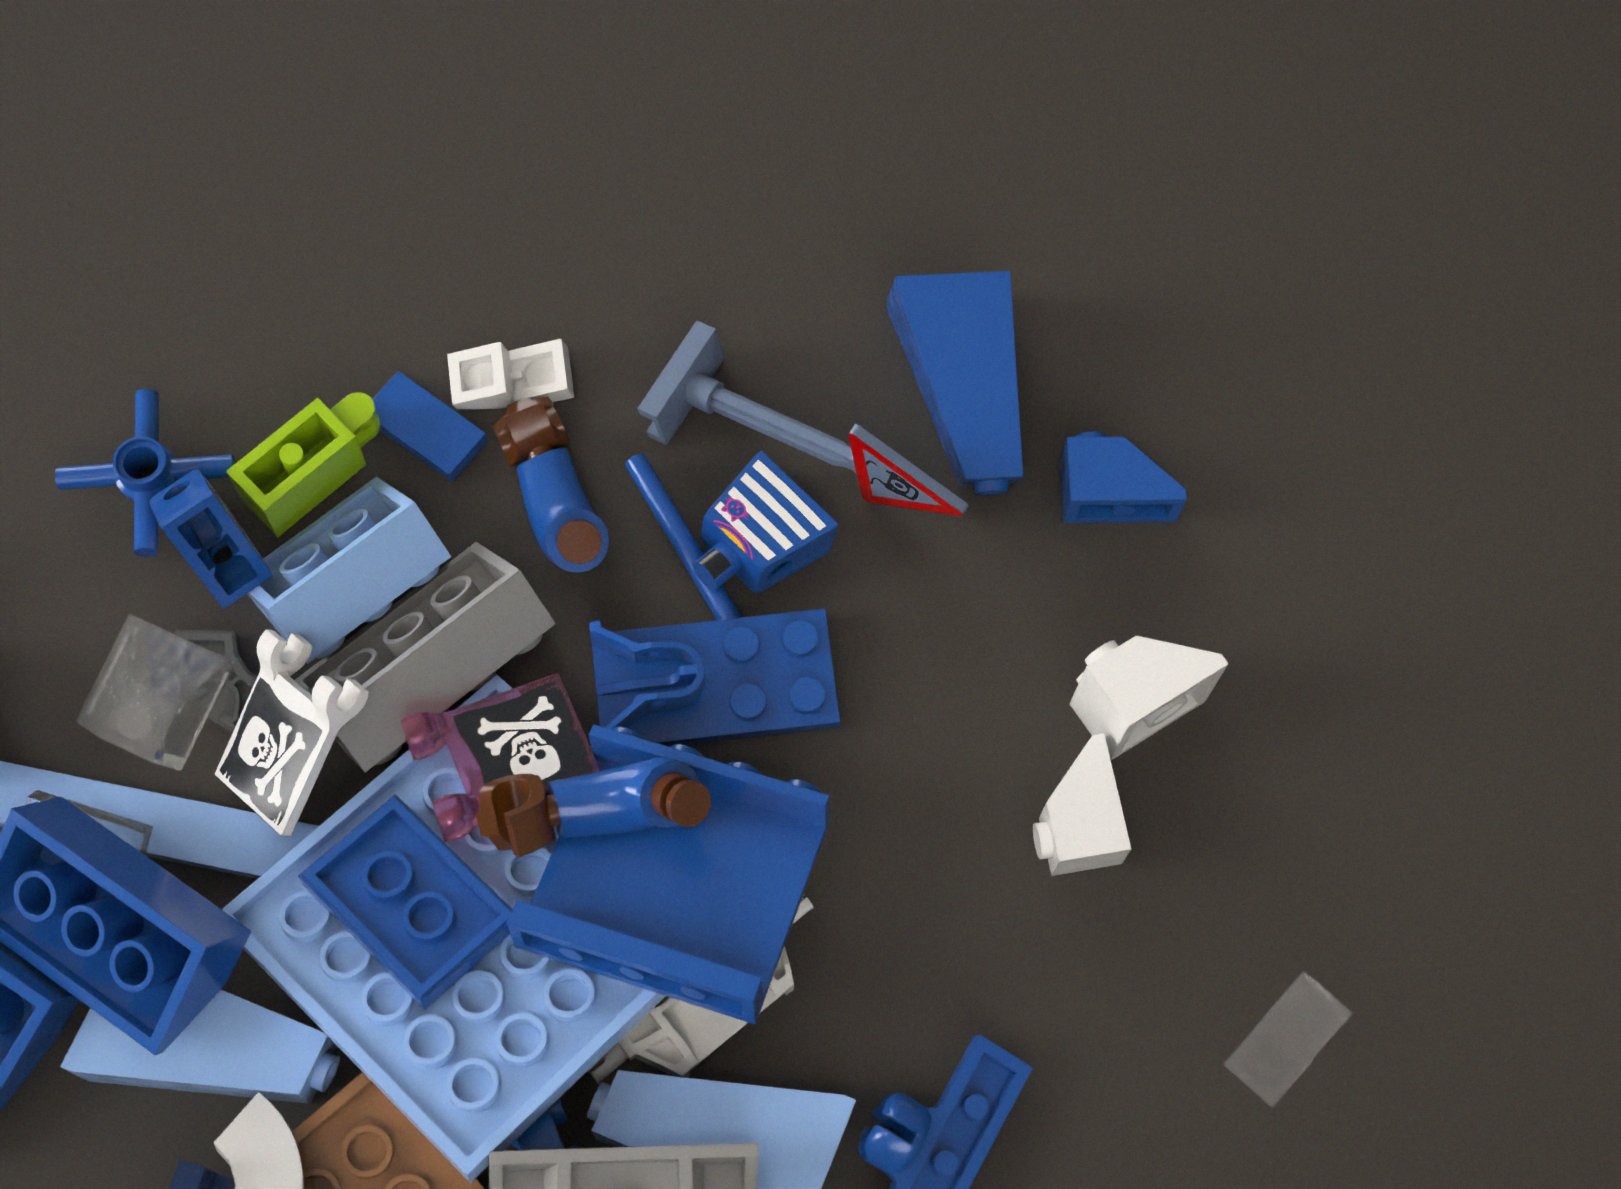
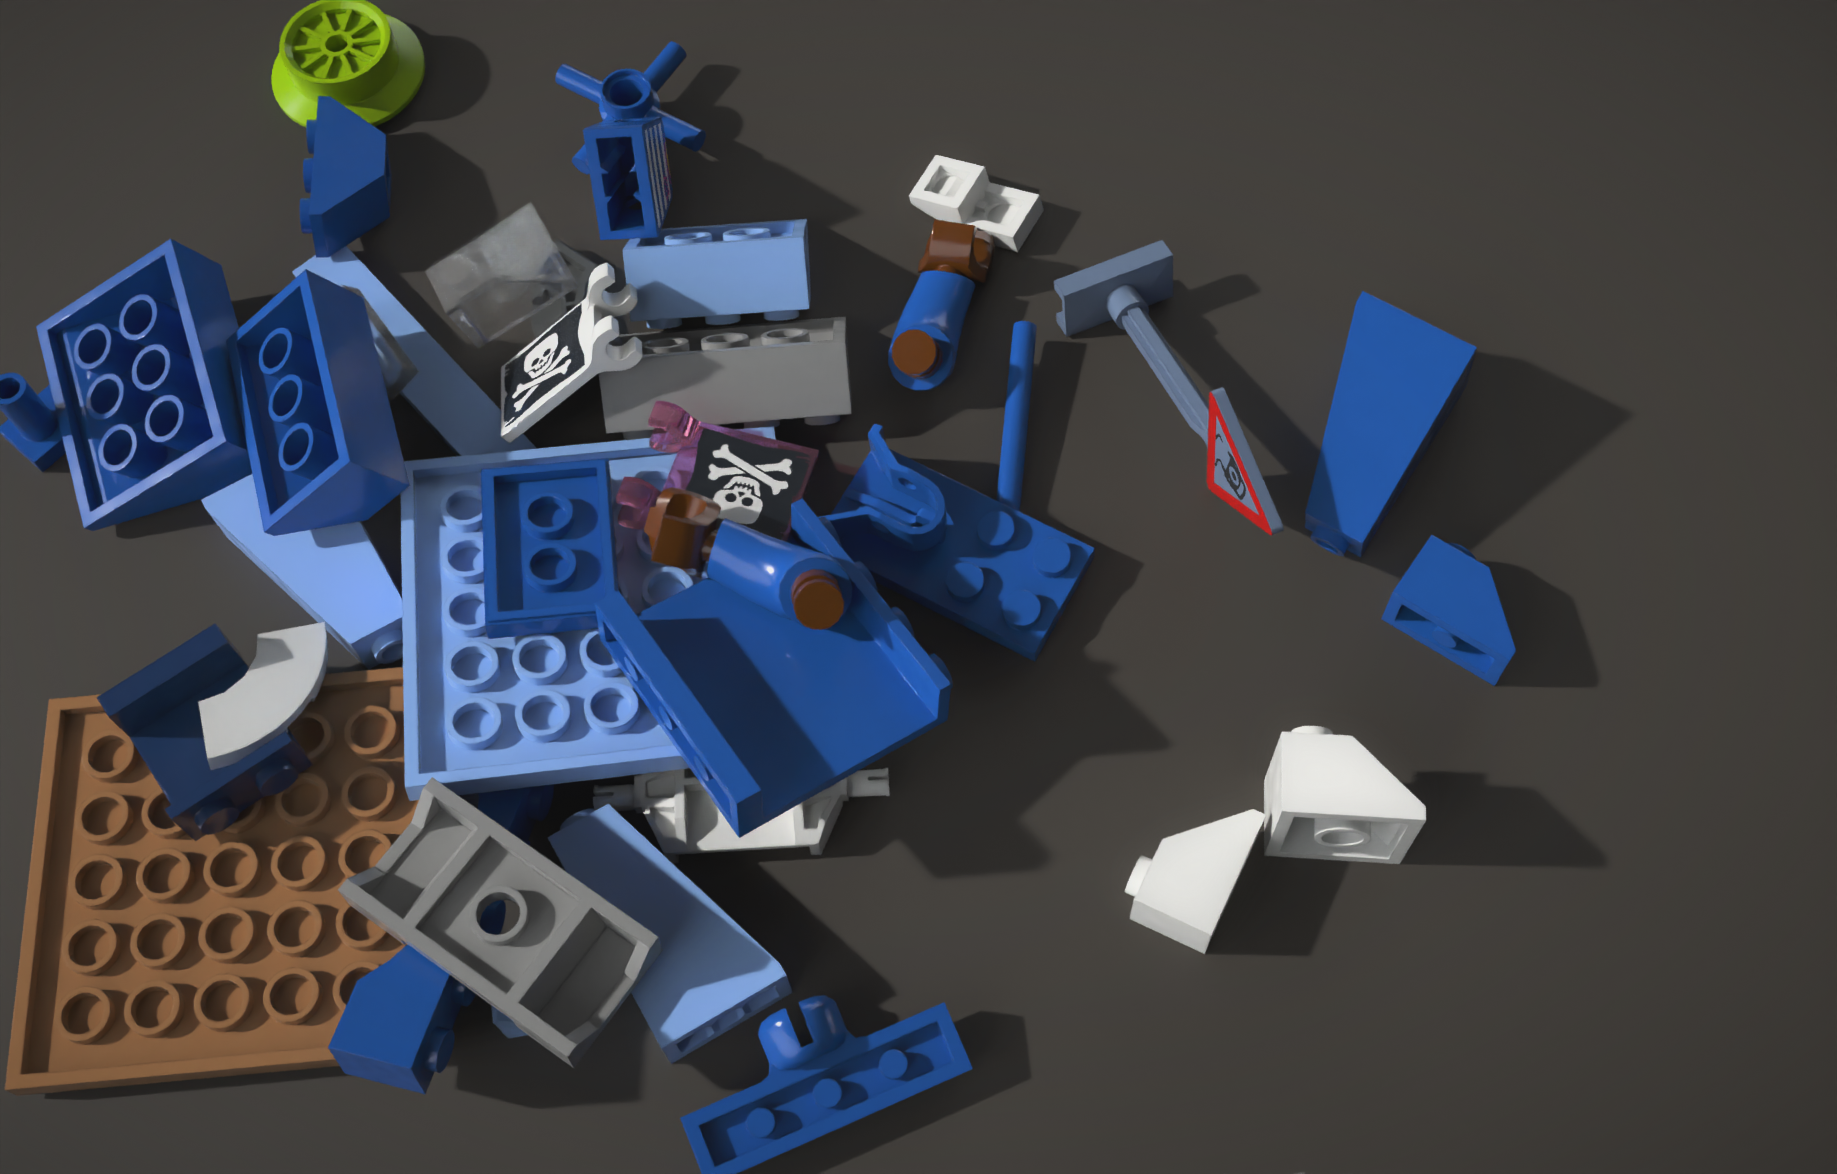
camera: 45 degrees right, 5 degrees down
(305, 460) = (754, 165): lime brick -> none
(427, 427) = (875, 202): blue tile -> none
(762, 529) = (1089, 448): blue torso -> none

